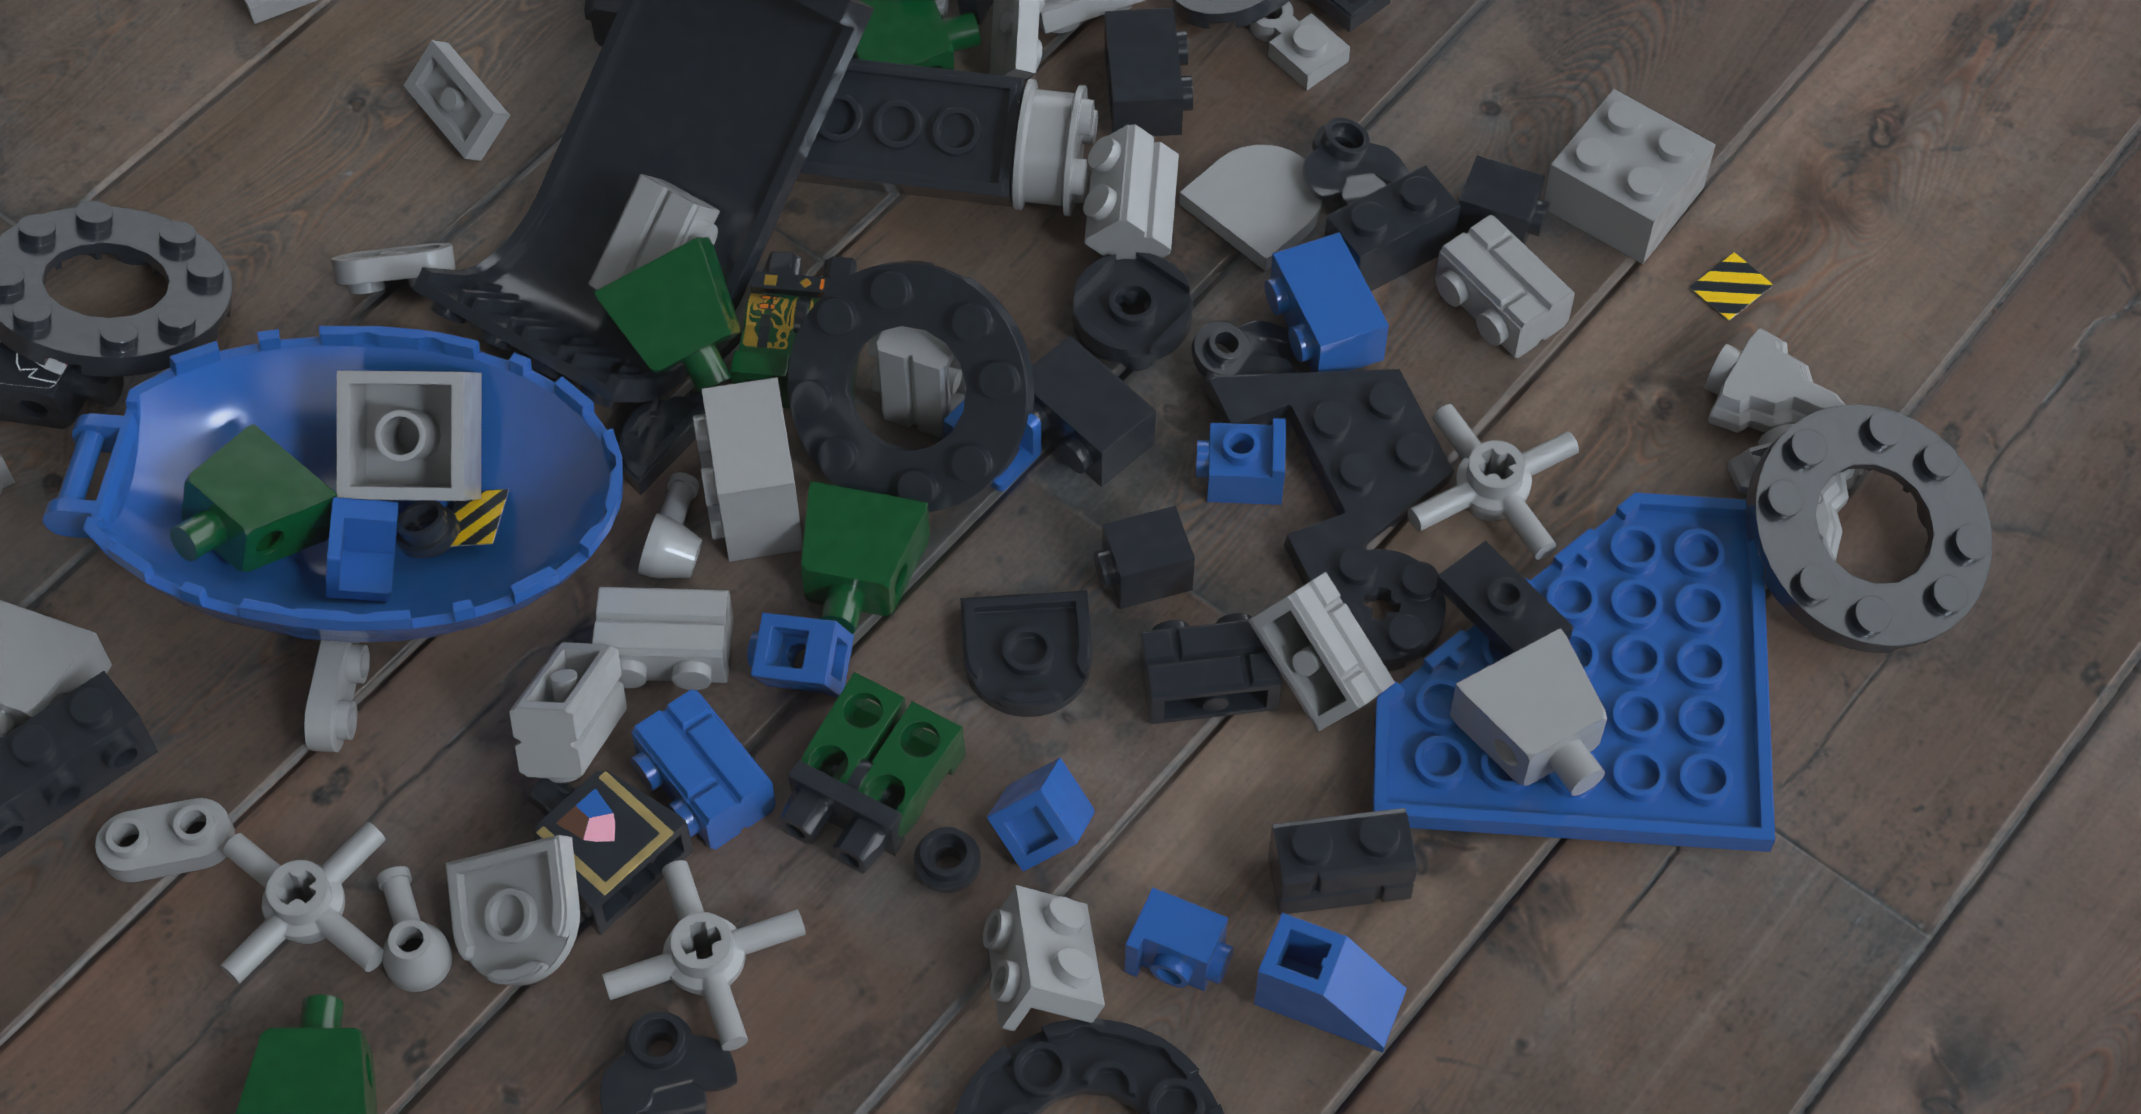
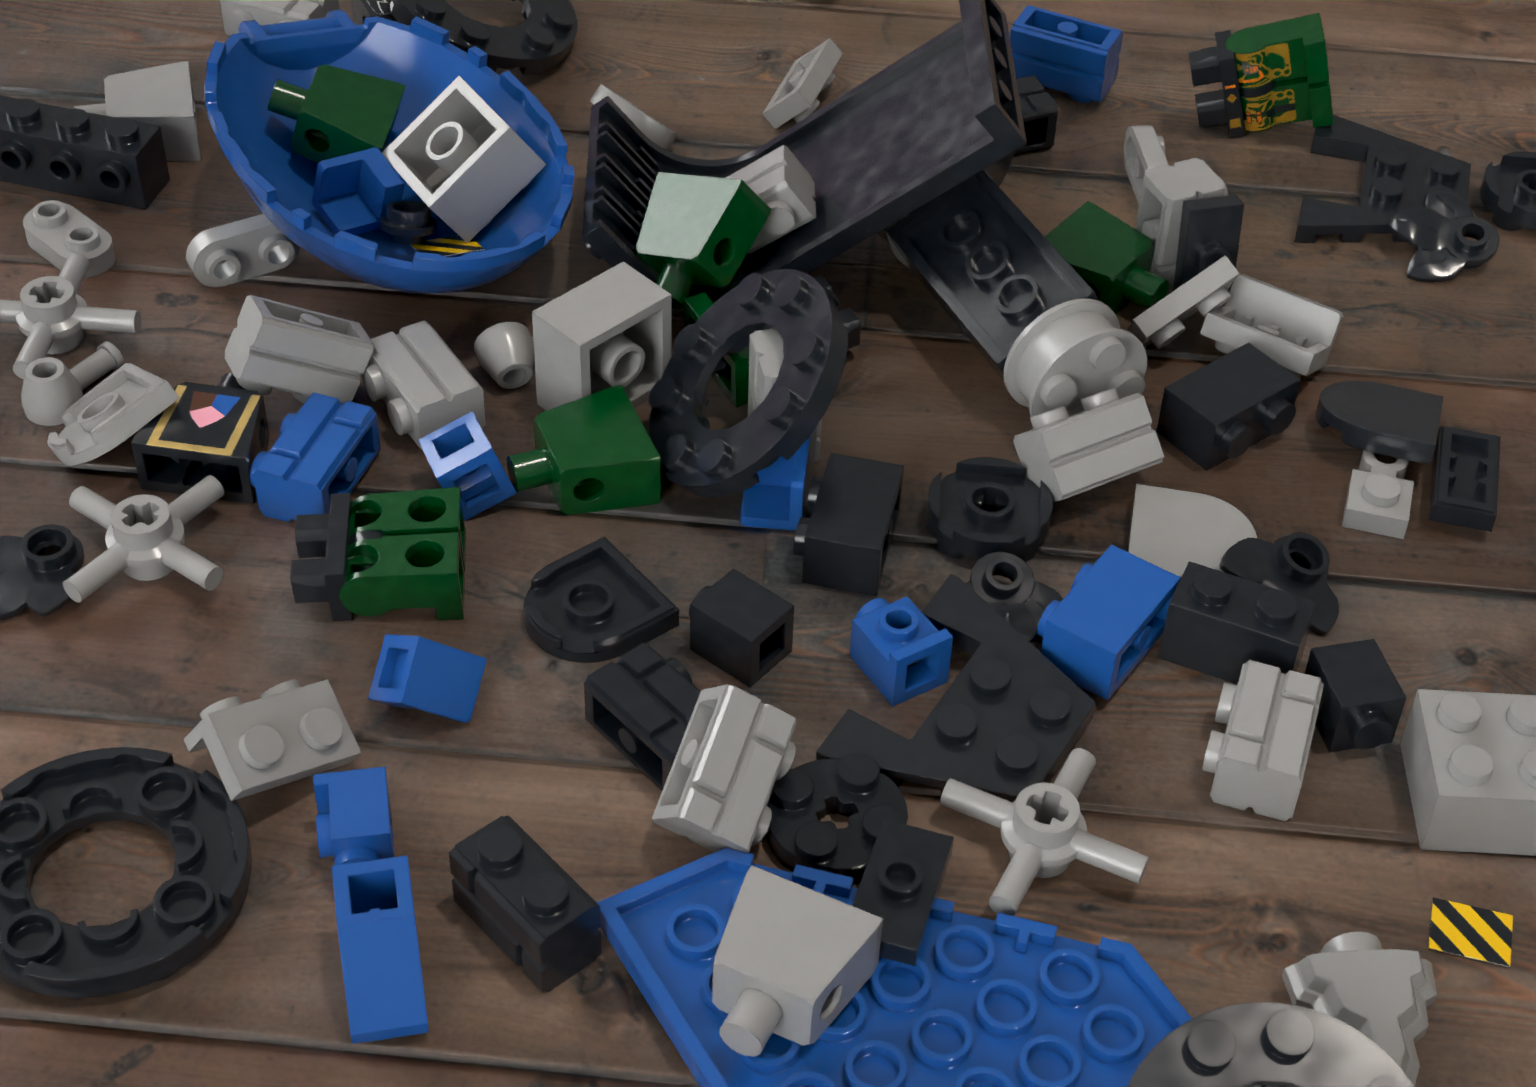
camera: 55 degrees right, 15 degrees down
(943, 843) = (342, 643): black plate -> none

